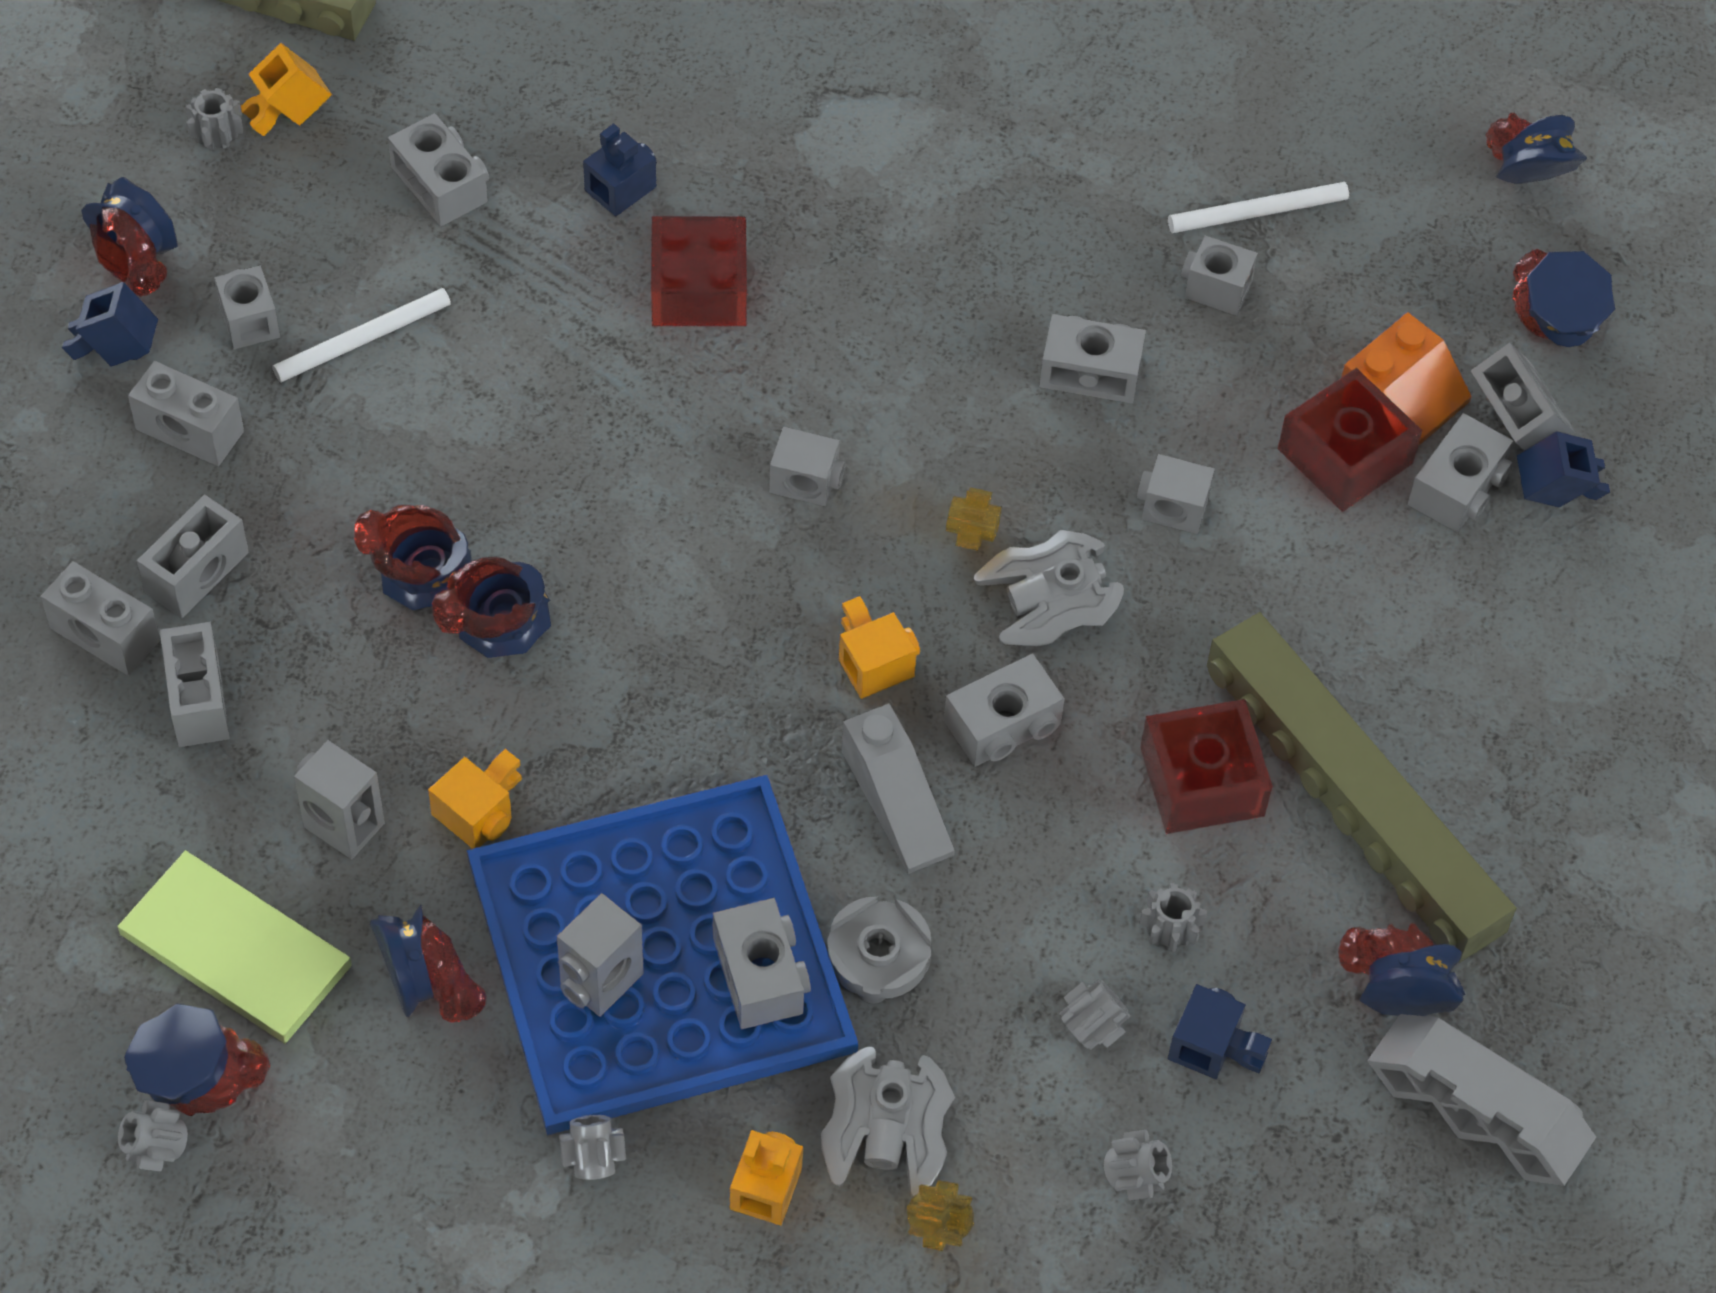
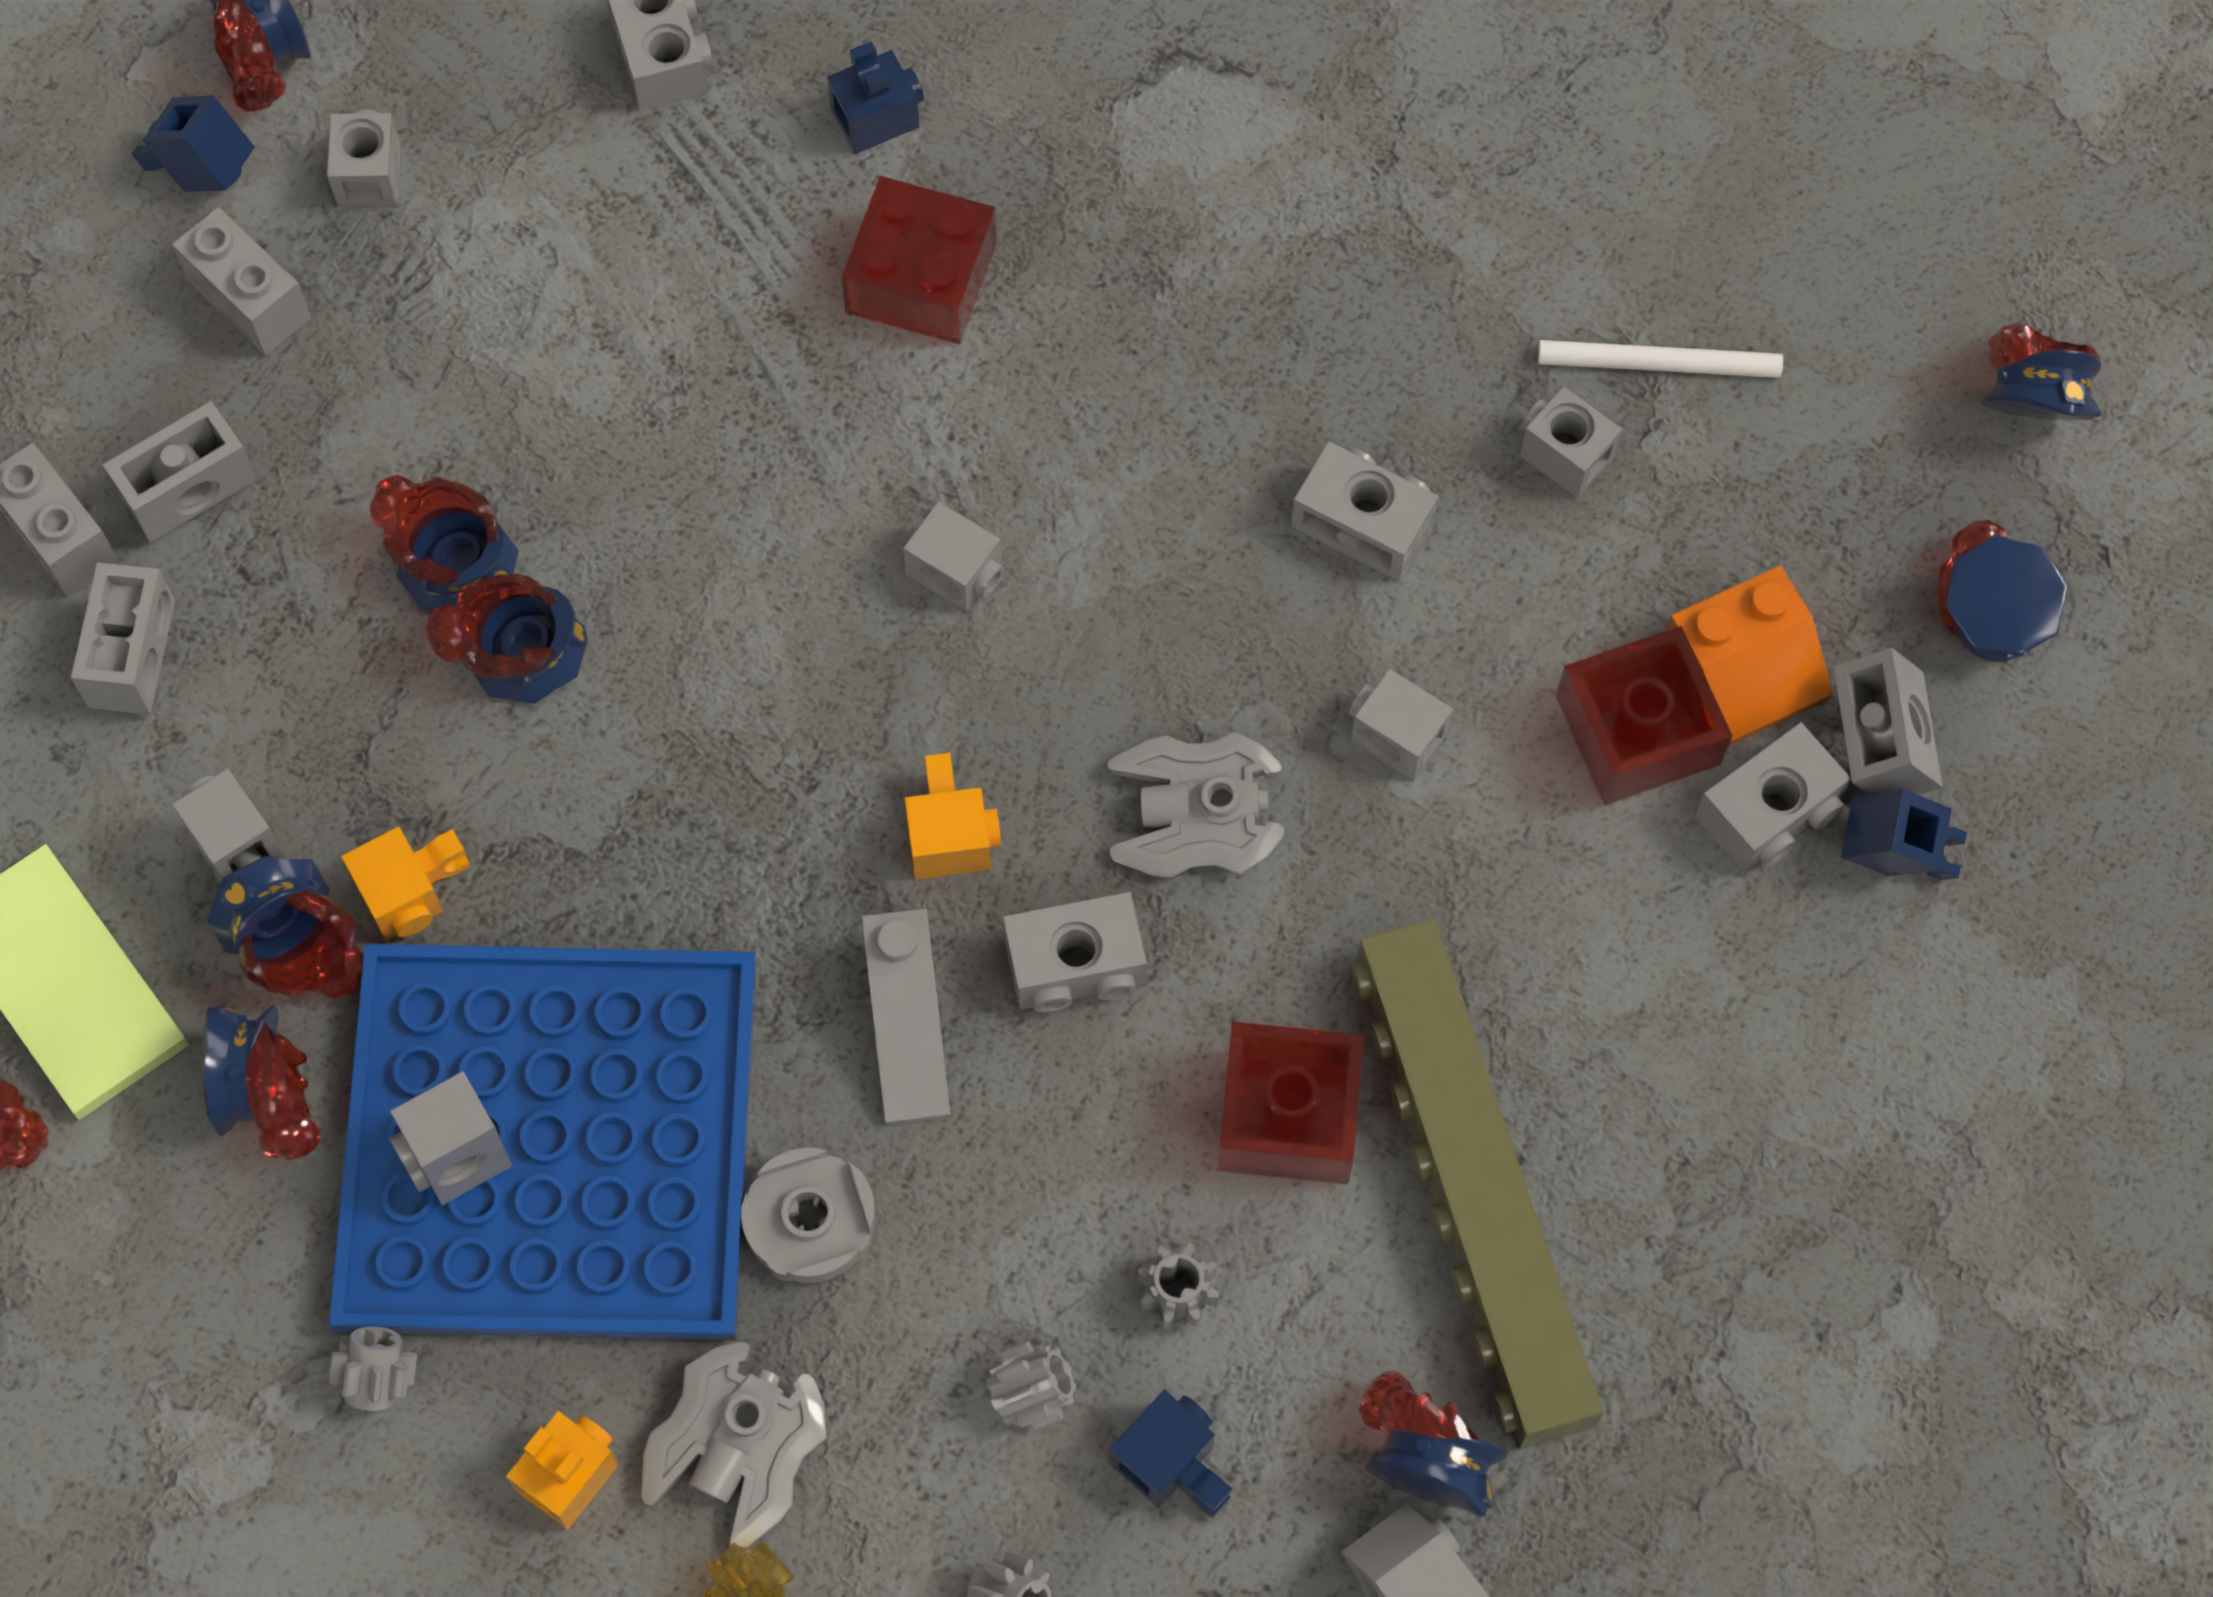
camera: 20 degrees right, 10 degrees up
(361, 335) = (490, 231): white bar -> none
(406, 852) = (287, 929): none -> piece
(756, 991) = (639, 1161): light grey brick -> none
(973, 519) = (1133, 687): clear yellow gear -> none

